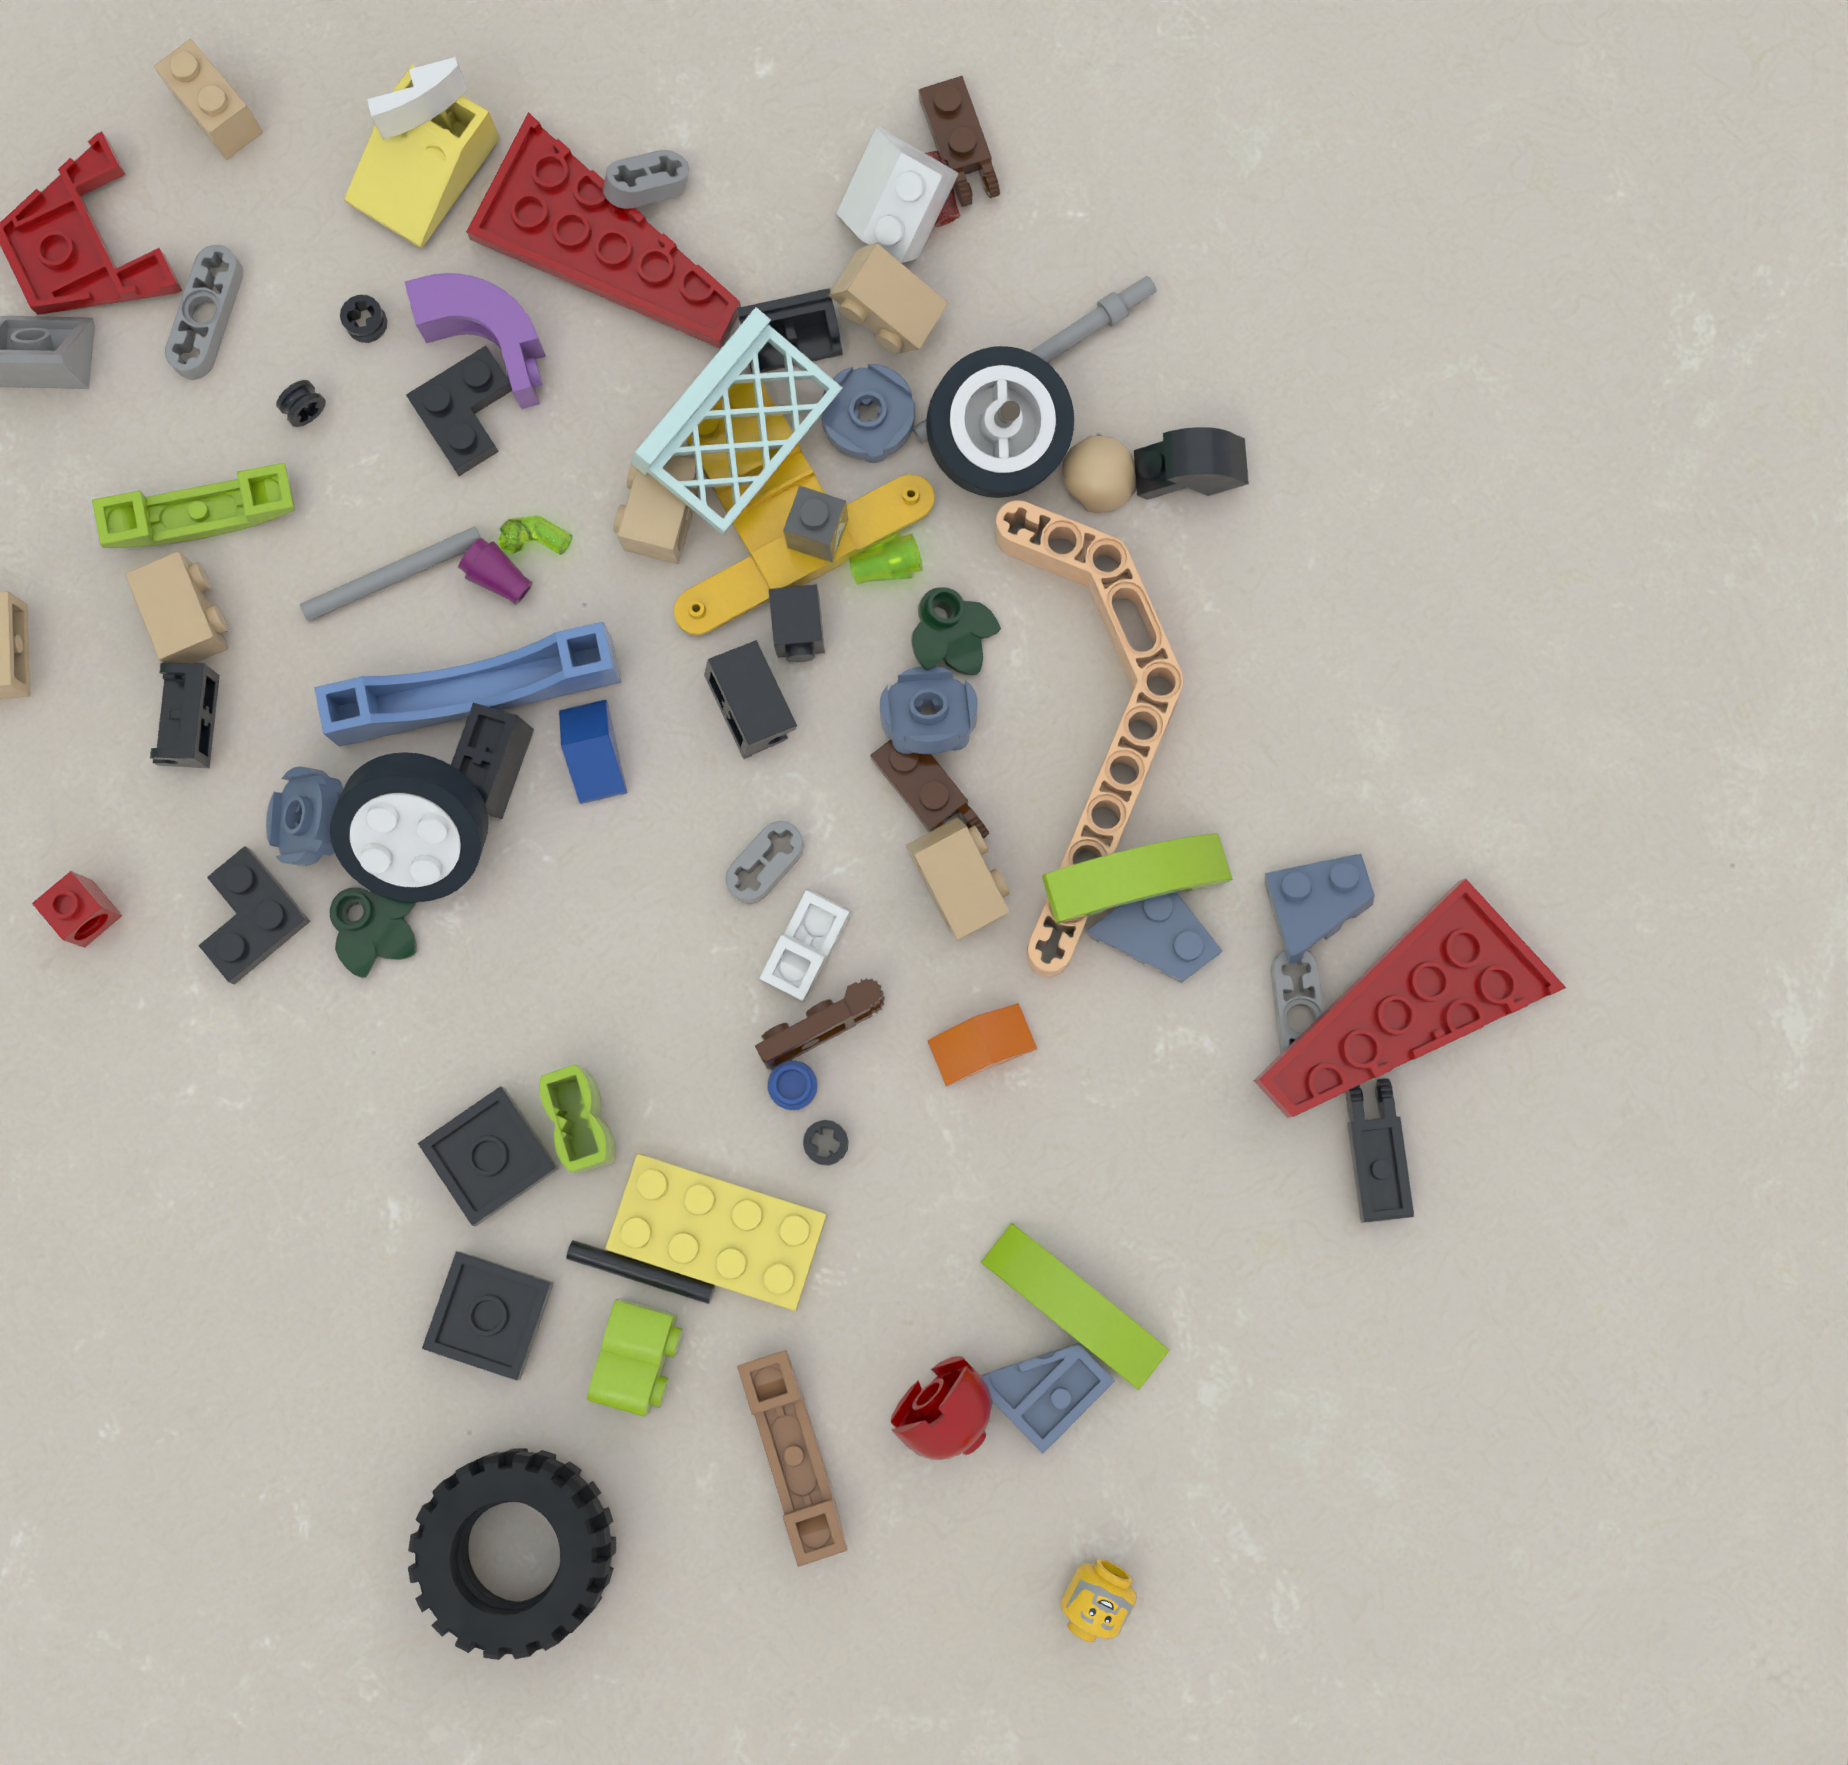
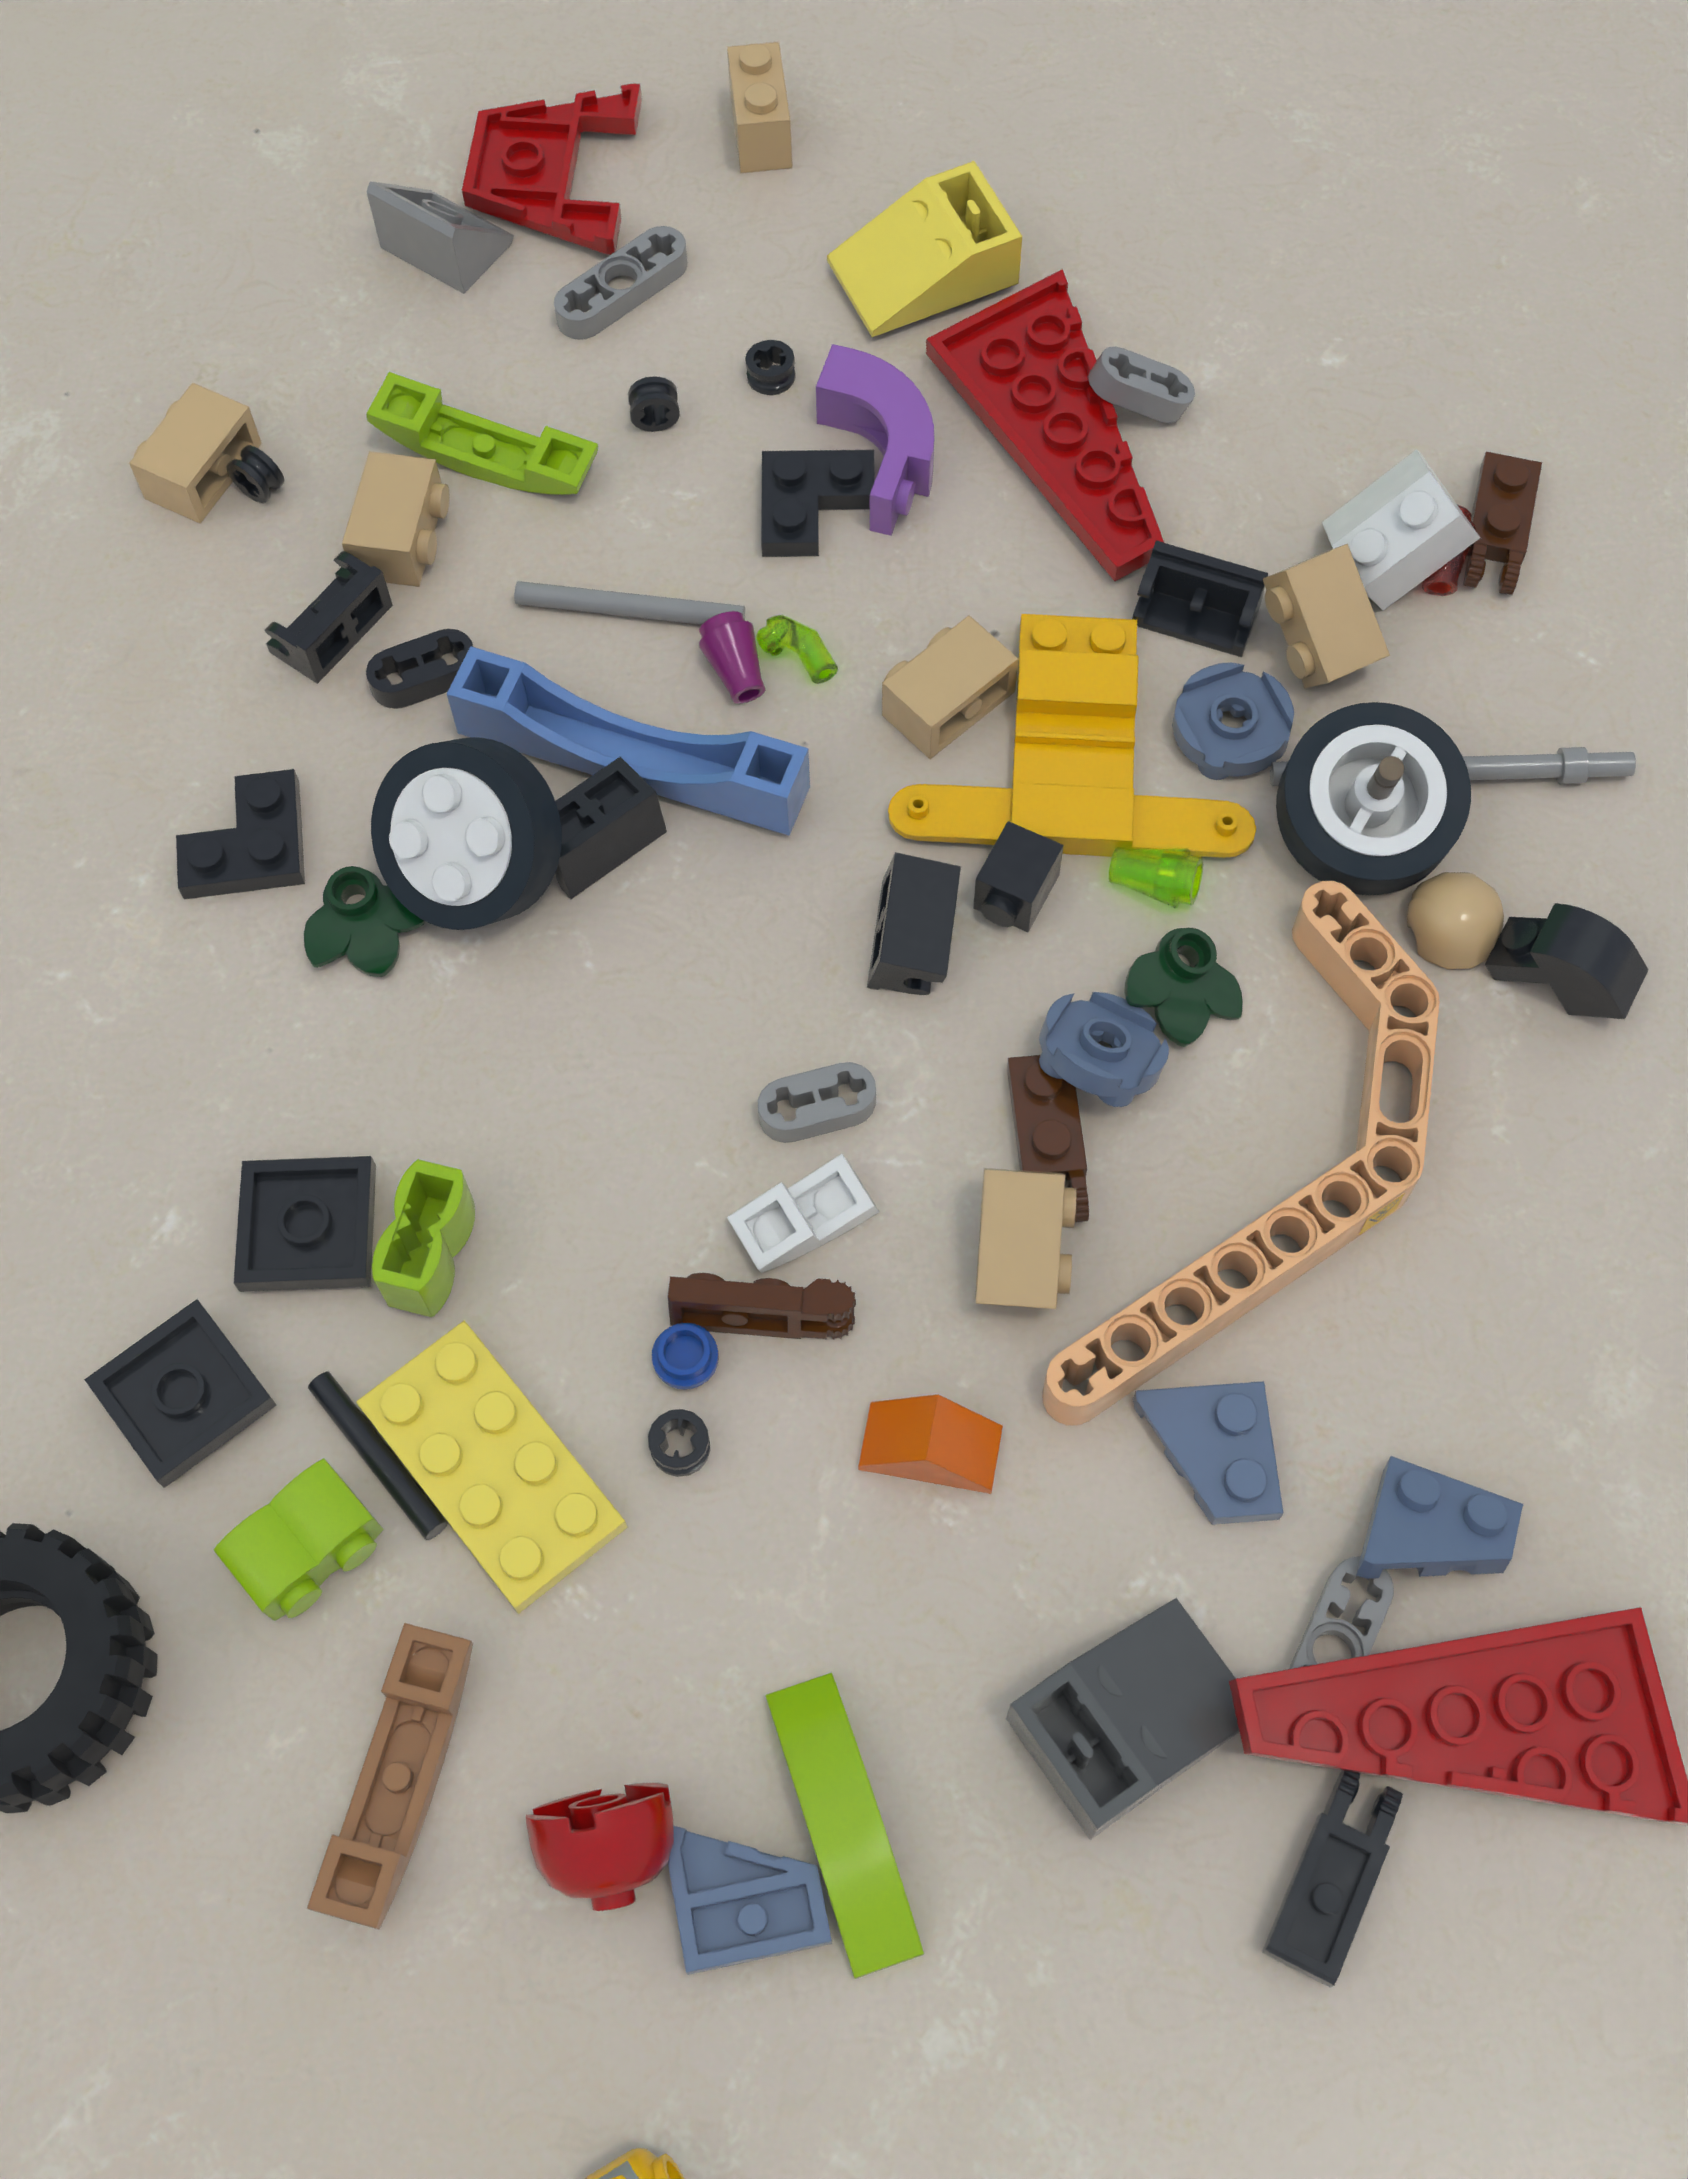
camera: 30 degrees right, 15 degrees down
(46, 636) = (255, 474): none -> black bush
(77, 909) = (86, 729): red brick -> none
(270, 706) = (419, 666): none -> black beam
(302, 816) = (361, 766): sand blue plate -> none
(433, 91) = (975, 186): white slope -> none
(591, 751) = (708, 885): blue slope -> none
(705, 393) = (1069, 590): light aqua fence -> none
(816, 524) = (1102, 784): dark grey brick -> none
(1136, 876) = (1233, 1353): lime slope -> none
(1207, 1136) = (1128, 1716): none -> dark grey slope

